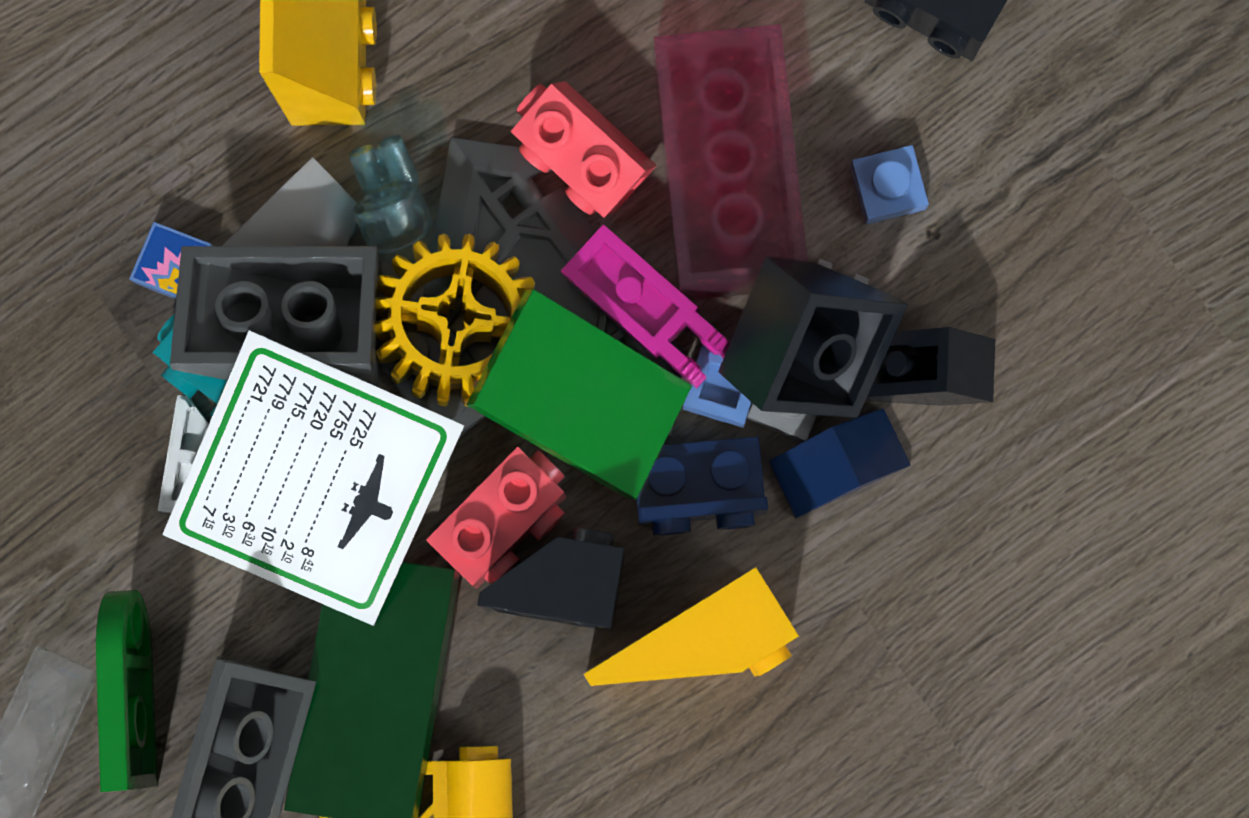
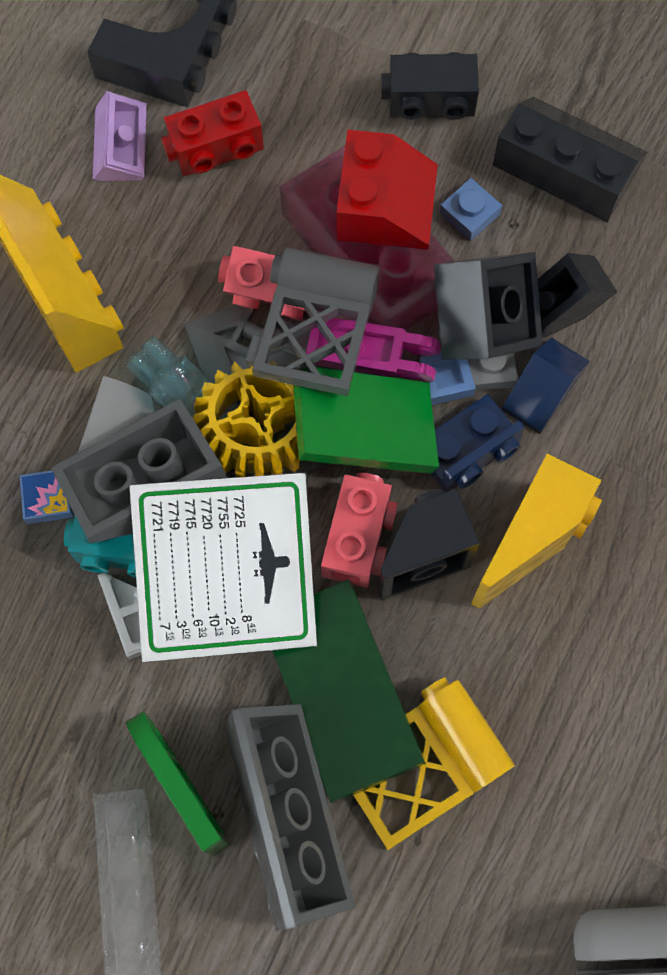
camera: 30 degrees left, 10 degrees down
(621, 204) = (323, 285): none -> dark grey piece
(770, 124) = (385, 192): none -> red slope
(1056, 183) = (567, 157): none -> black slope

